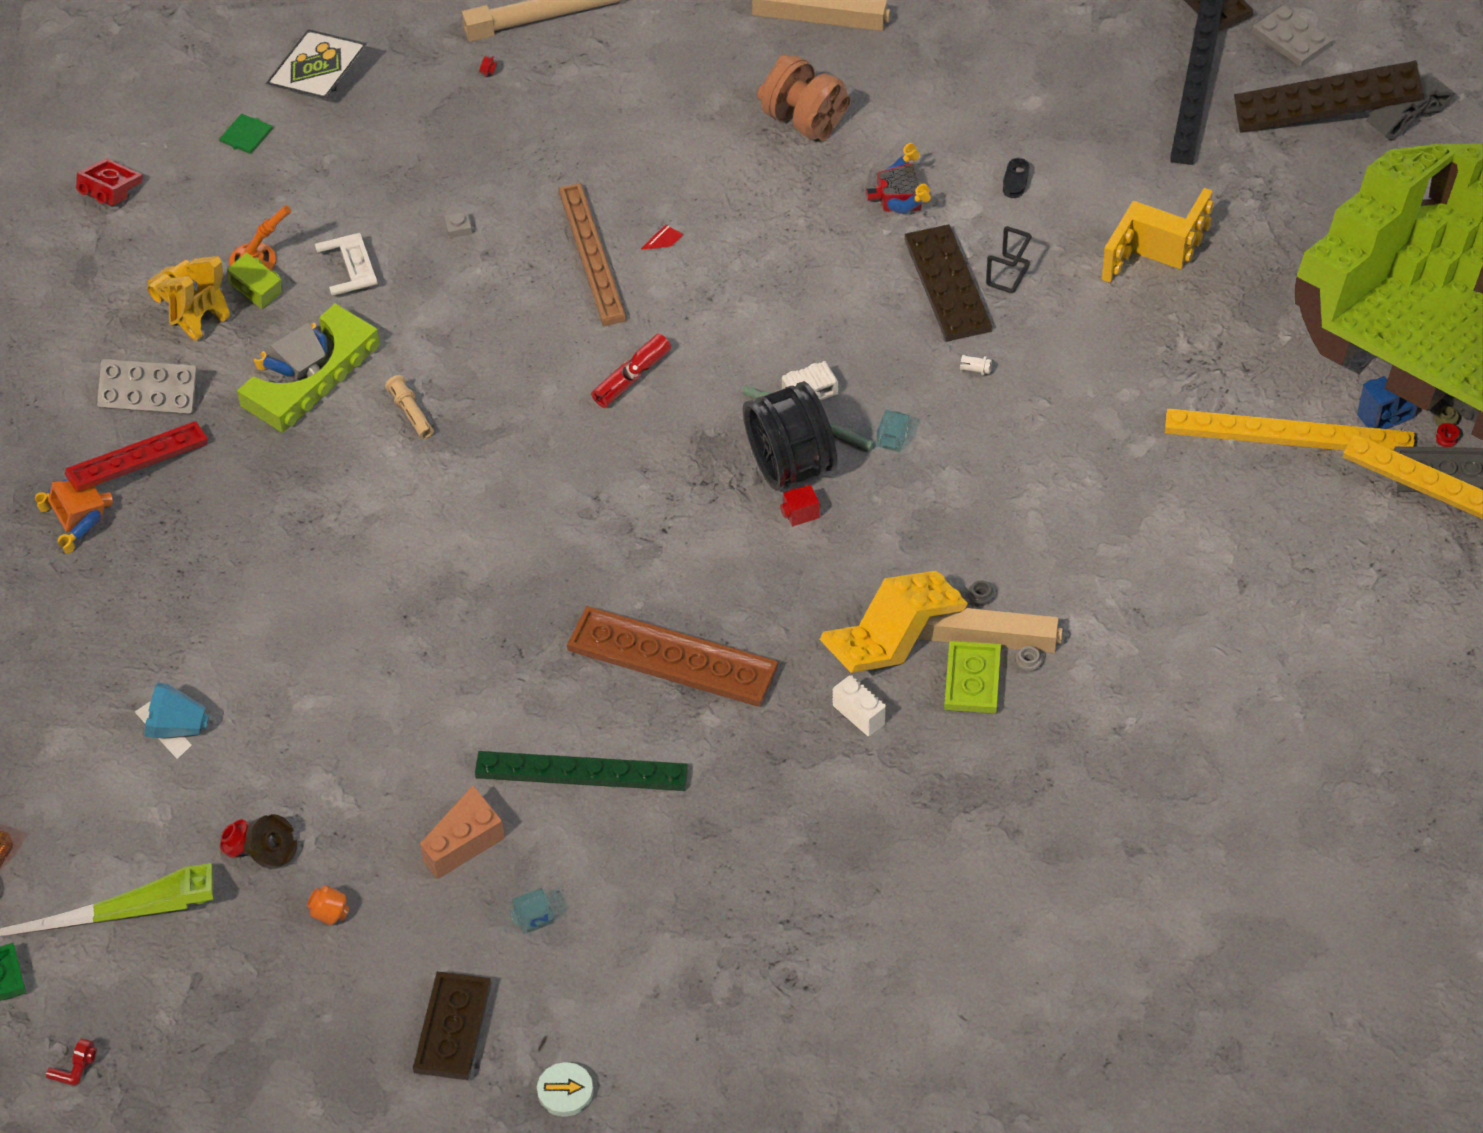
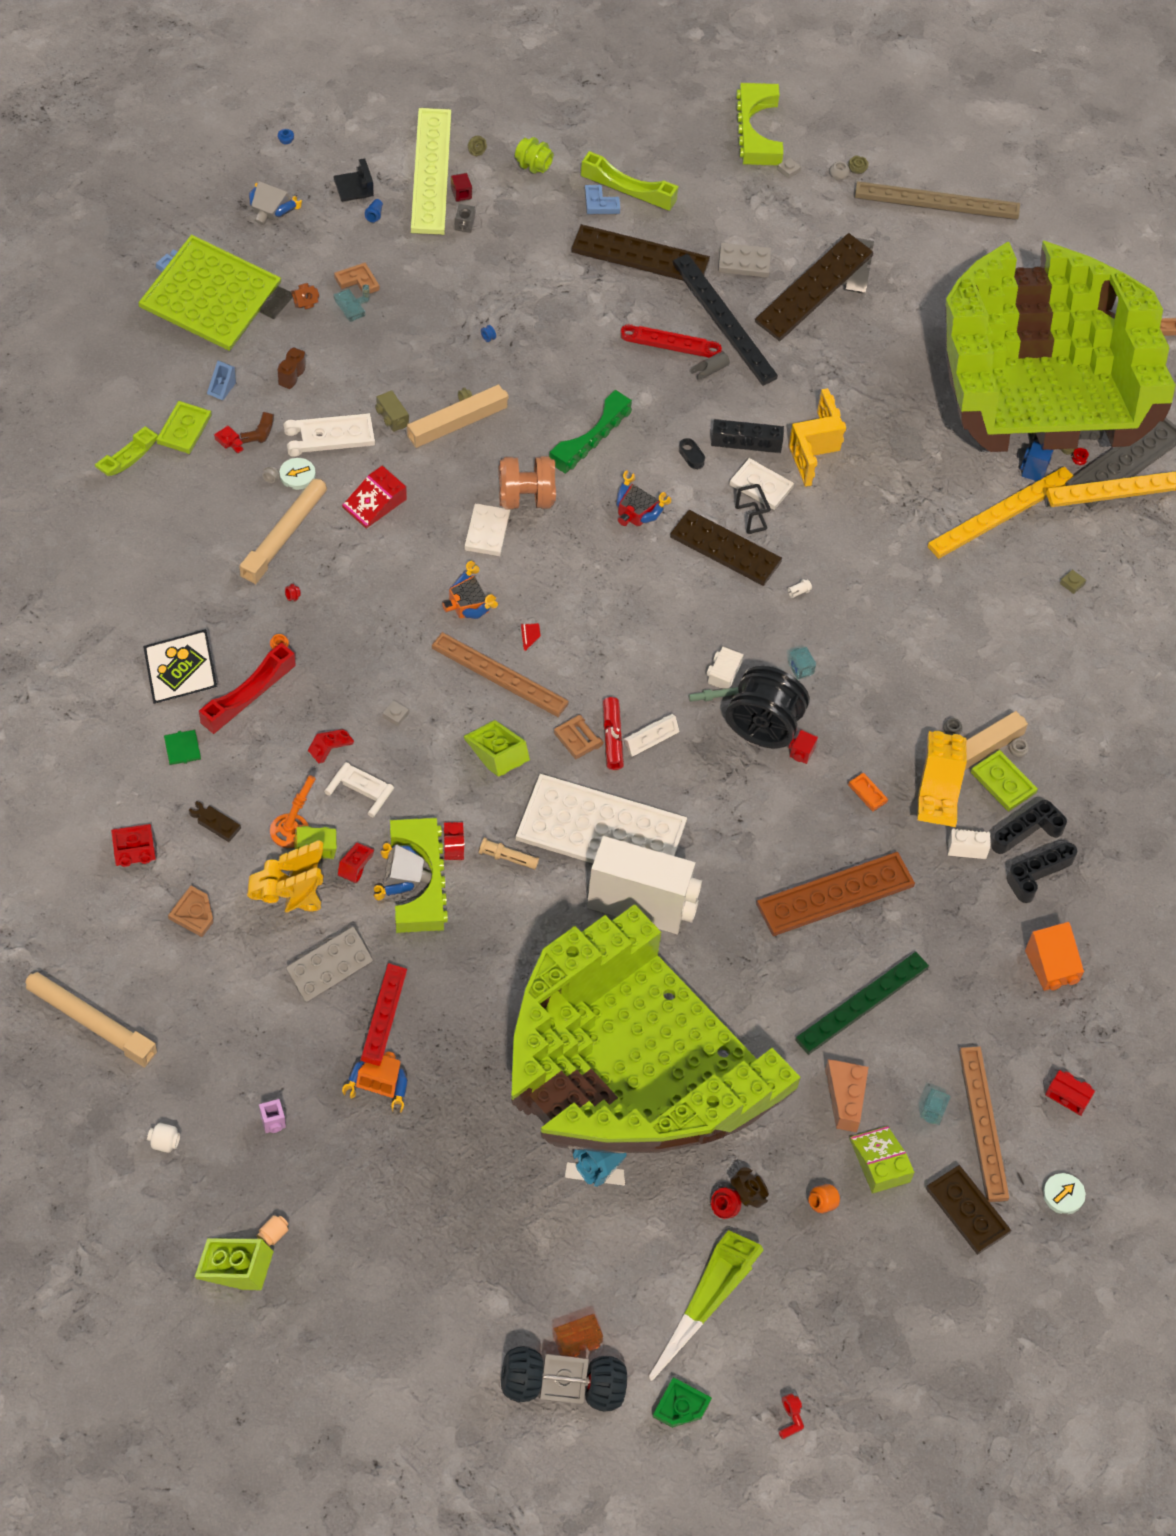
camera: 50 degrees left, 5 degrees up
(93, 268) = (193, 912): none -> medium nougat plate
(199, 211) = (215, 821): none -> dark brown plate
(263, 319) = (353, 862): none -> red plate
(274, 617) = (622, 1064): none -> lime piece
(305, 121) = (223, 709): none -> red arch
(368, 206) = (326, 741): none -> red bracket
(372, 367) = (453, 841): none -> red plate
(425, 917) = (882, 1159): none -> lime slope
(426, 100) = (278, 638): none -> orange plate
(475, 504) = (650, 879): none -> white brick
(508, 312) = (498, 747): none -> lime slope
(521, 445) = (576, 818): none -> white plate
(561, 964) = (984, 1124): none -> medium nougat plate
(588, 350) = (574, 741): none -> medium nougat plate
(638, 165) = (468, 597): none -> torso
(658, 31) = (375, 497): none -> red slope
(665, 395) = (651, 735): none -> white plate
(682, 1004) = (1070, 1092): none -> red brick
(731, 123) = (487, 529): none -> white plate
(816, 867) = (1055, 956): none -> orange slope
(817, 590) = (868, 792): none -> orange plate
(889, 102) = (570, 452): none -> green arch
(908, 728) = (1024, 828): none -> black beam
(943, 788) = (1061, 856): none -> black beam
(1054, 247) = (773, 485): none -> white plate
(1087, 192) = (747, 436): none -> black brick
(1118, 65) = (670, 340): none -> red plate
(1131, 109) = (711, 365): none -> dark grey piece
(1287, 547) = (1073, 581): none -> olive plate

